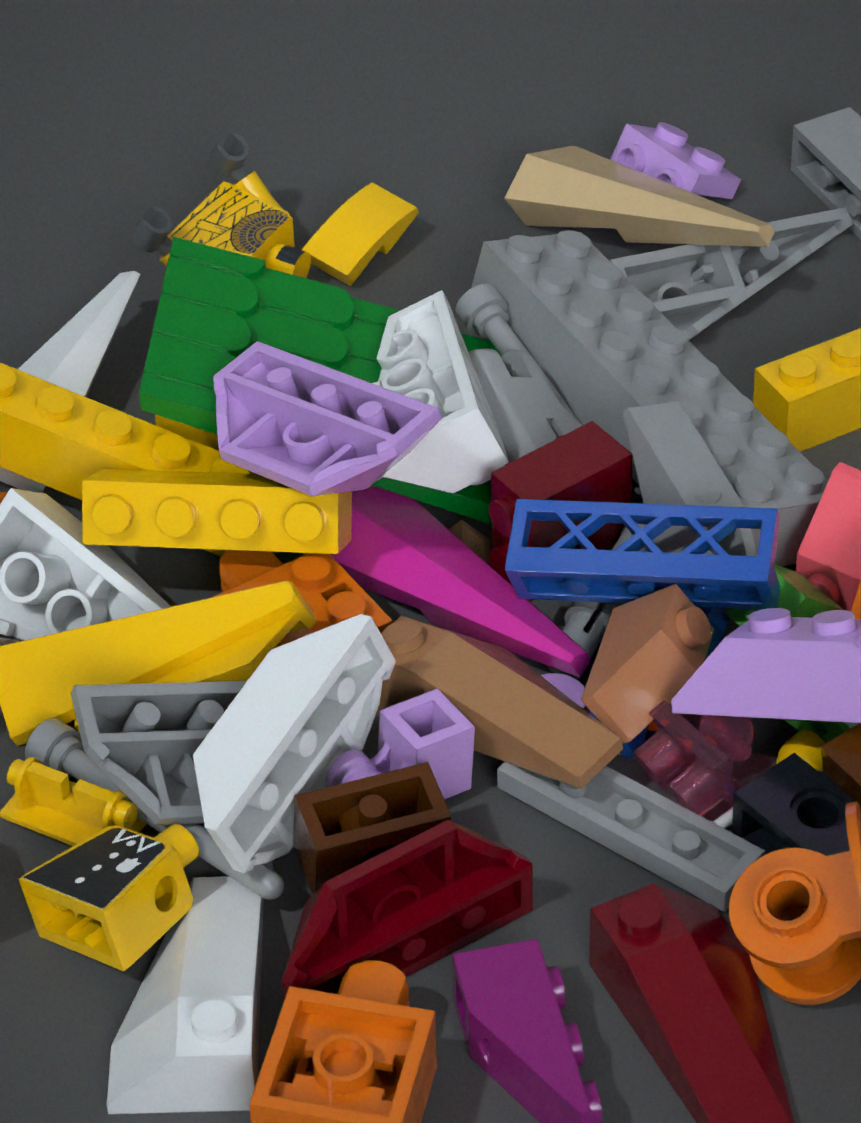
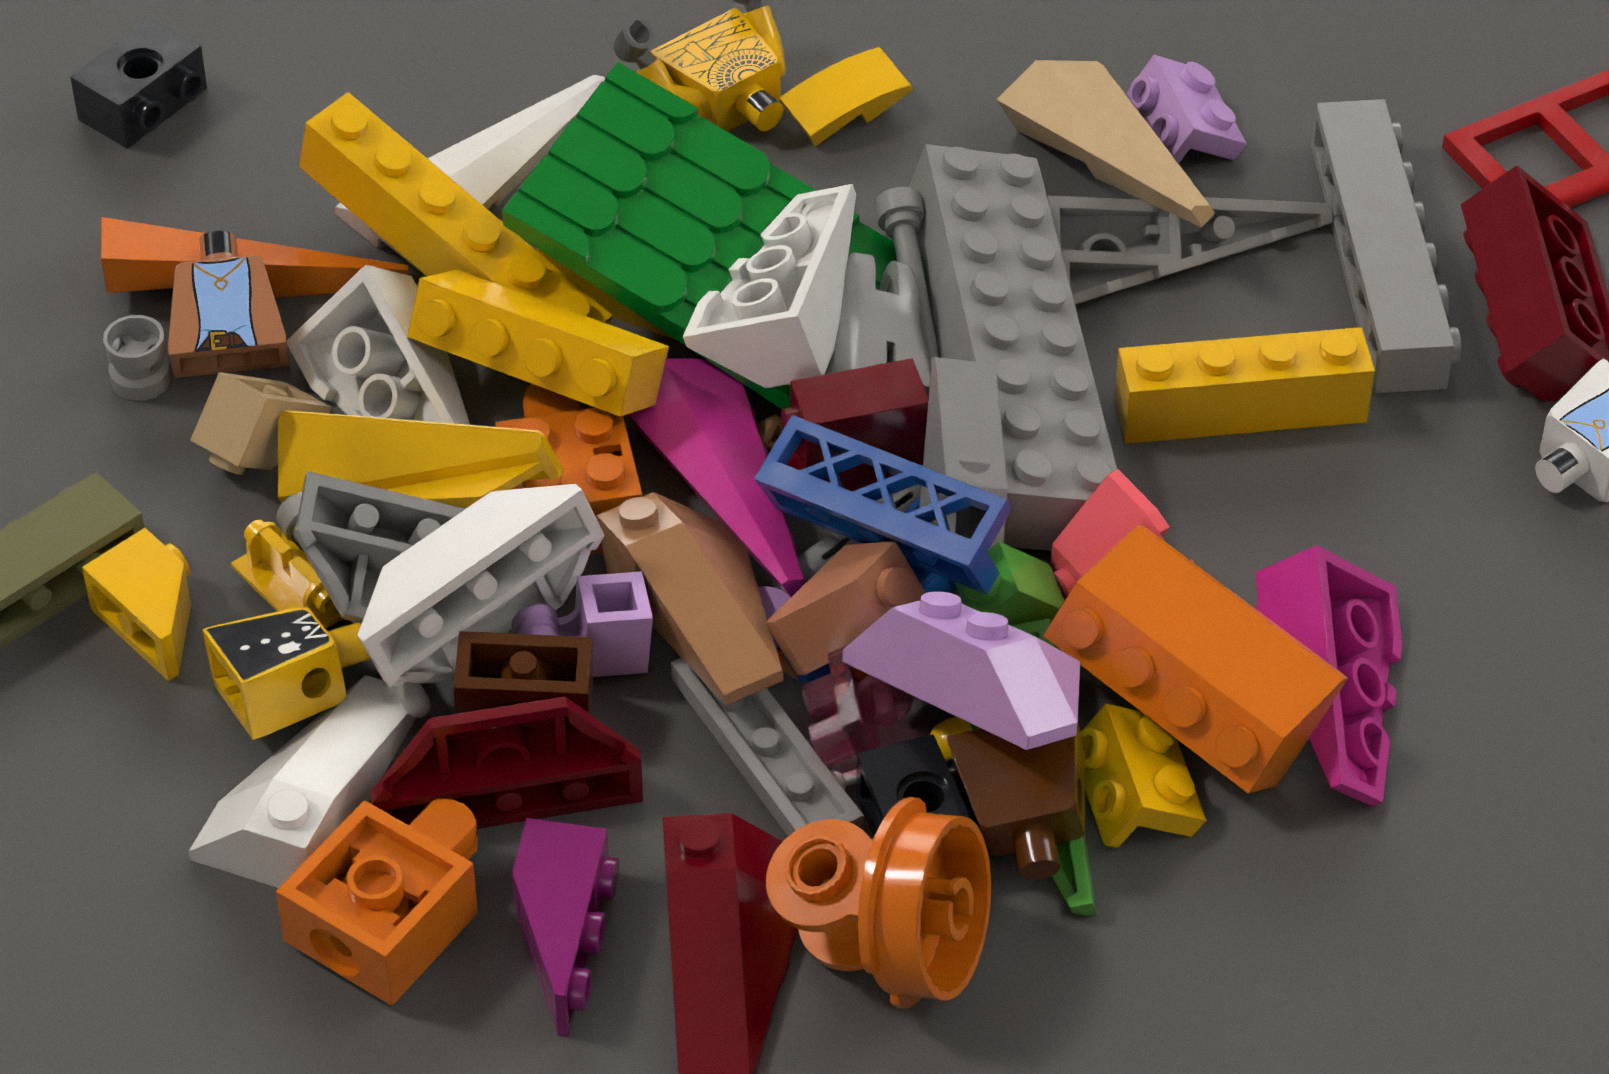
camera: 20 degrees right, 5 degrees up
(312, 422) = (634, 287): lavender wedge -> none

